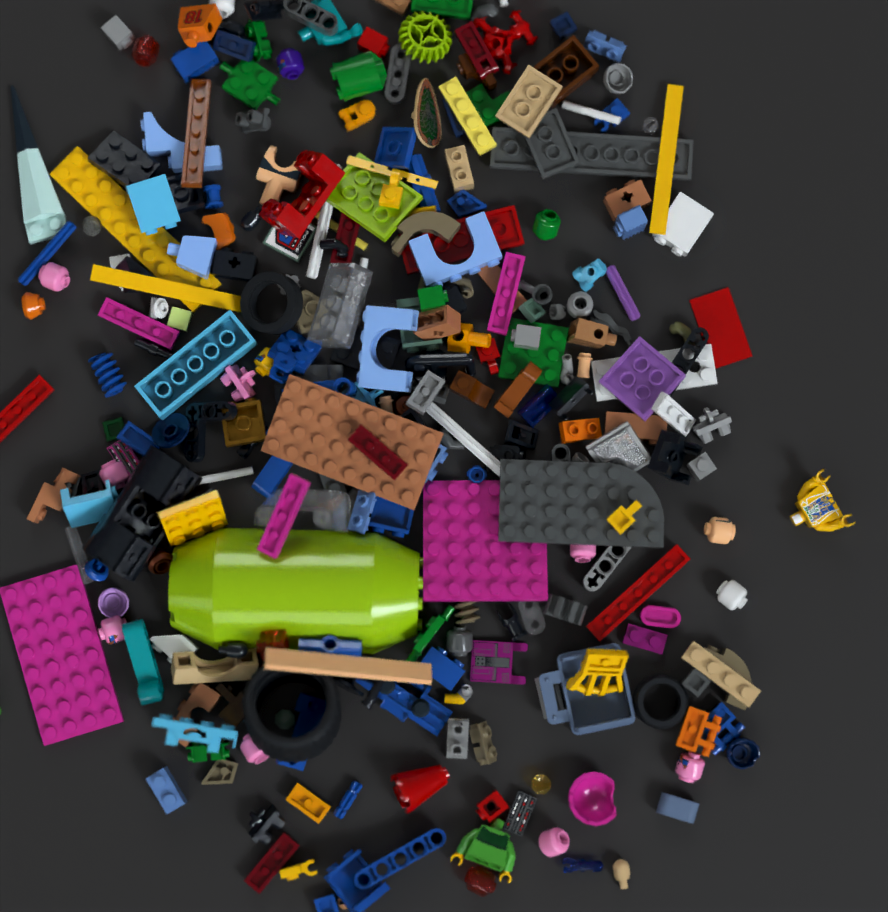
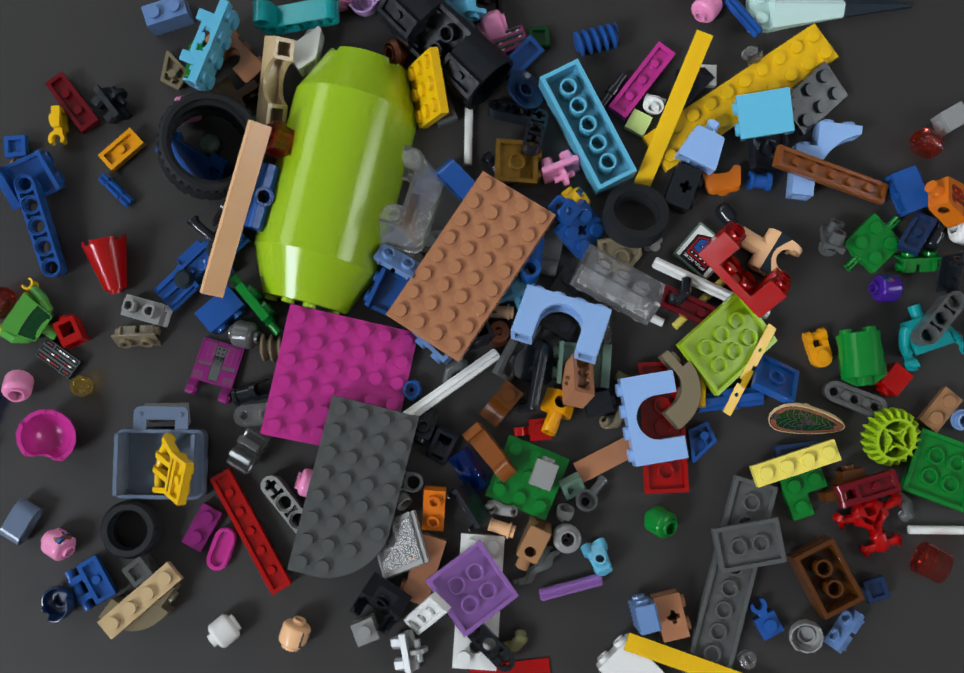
camera: 100 degrees right, 0 degrees up
(234, 649) = (285, 103): black cylinder -> none
(283, 516) = (405, 174): dark pink plate -> none
(378, 452) = (452, 287): dark red plate -> none
(391, 193) = (727, 363): yellow plate -> none
(425, 392) = (506, 353): light grey plate -> none
(432, 297) = (605, 381): green brick -> none
(459, 168) = (739, 442): tan brick -> none
(460, 697) = (189, 322): arm -> none
(506, 293) = (595, 462): dark pink plate -> none
(528, 101) = (800, 533): tan plate -> none
(591, 112) = (773, 599): white bar -> none
(622, 517) = (324, 532): yellow plate -> none
(692, 730) = (91, 555): orange plate -> none

